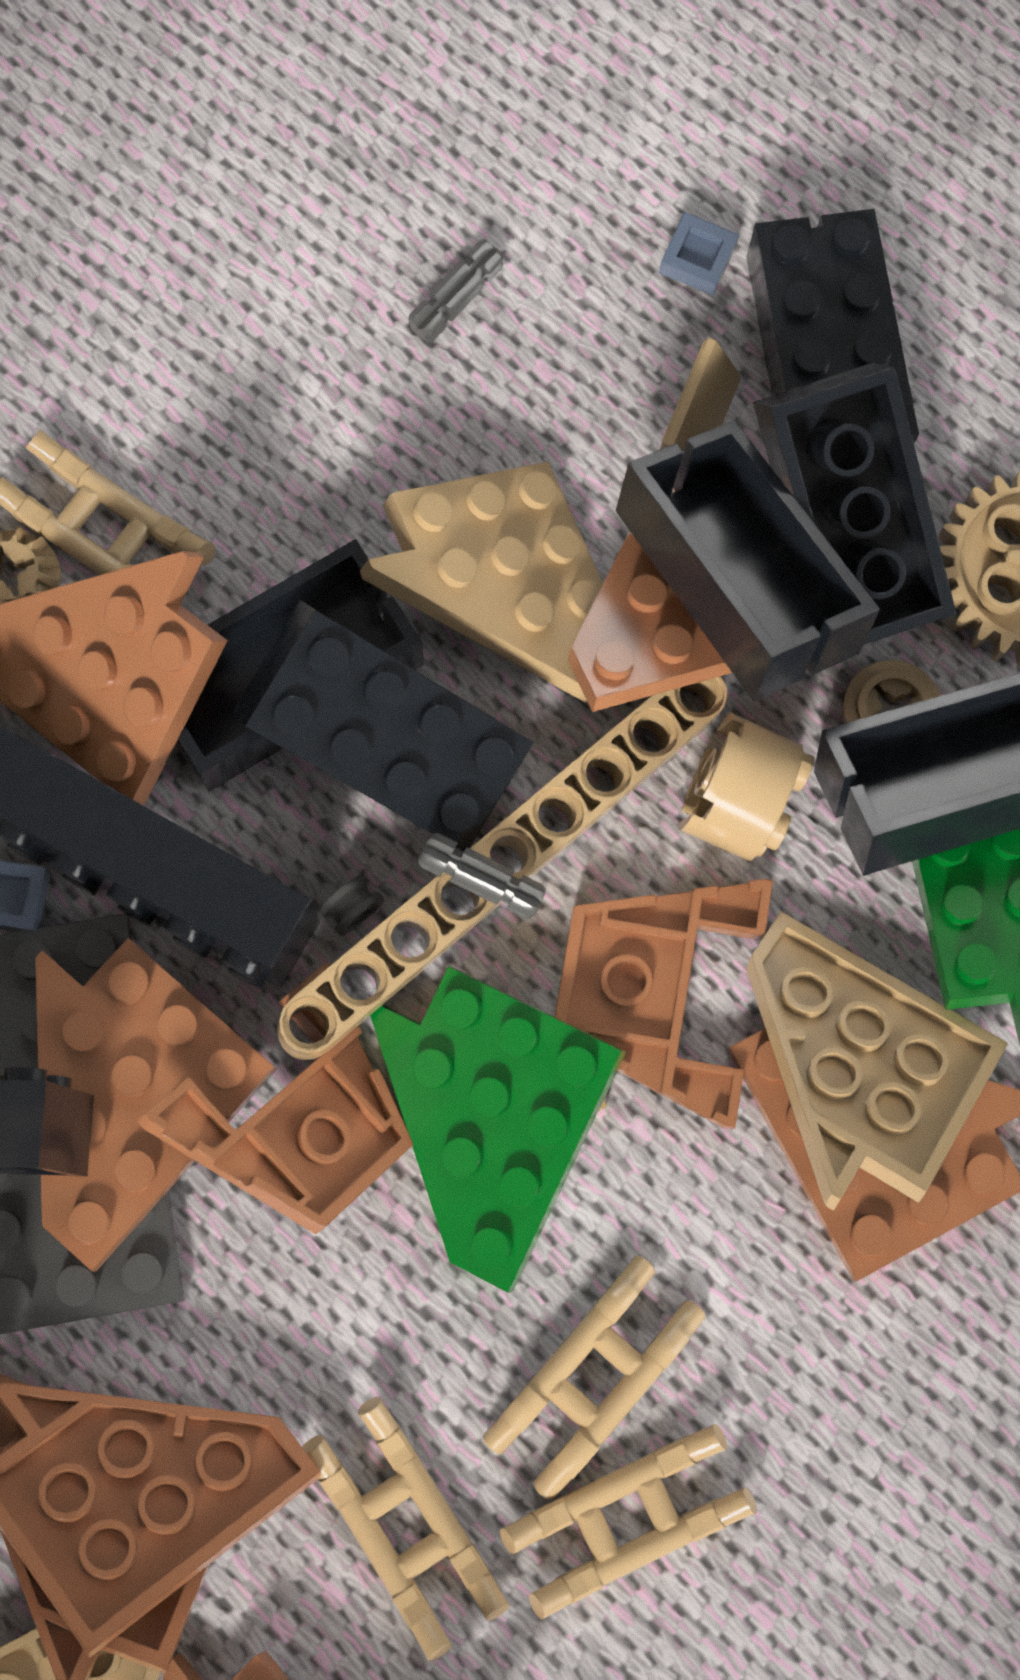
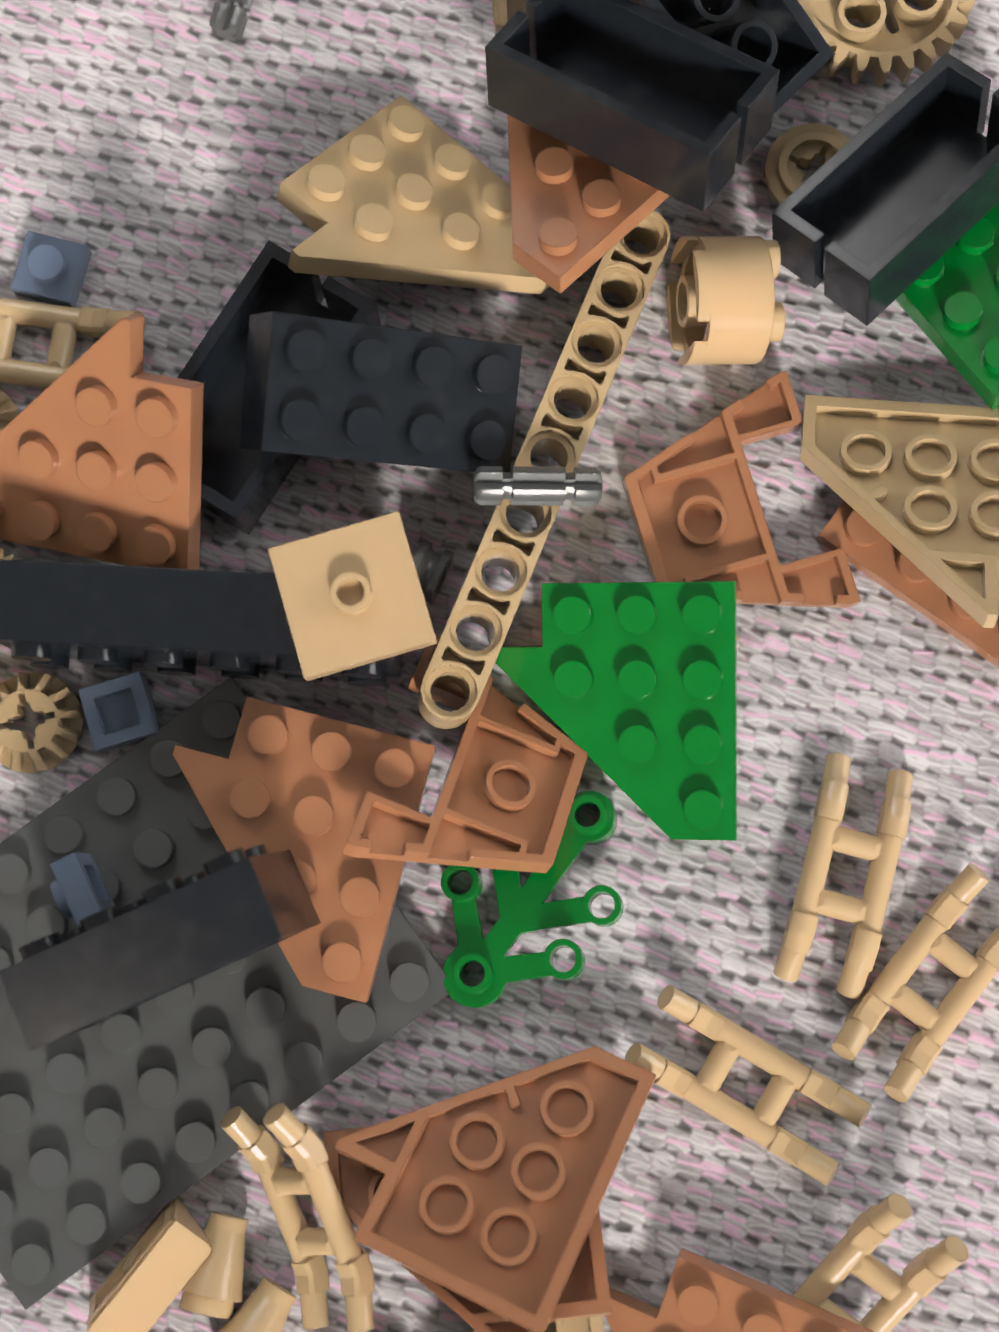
camera: 20 degrees left, 5 degrees up
(155, 468) = (51, 269): none -> sand blue plate
(262, 894) = (352, 596): none -> tan plate
(281, 1261) = (523, 912): none -> green plant

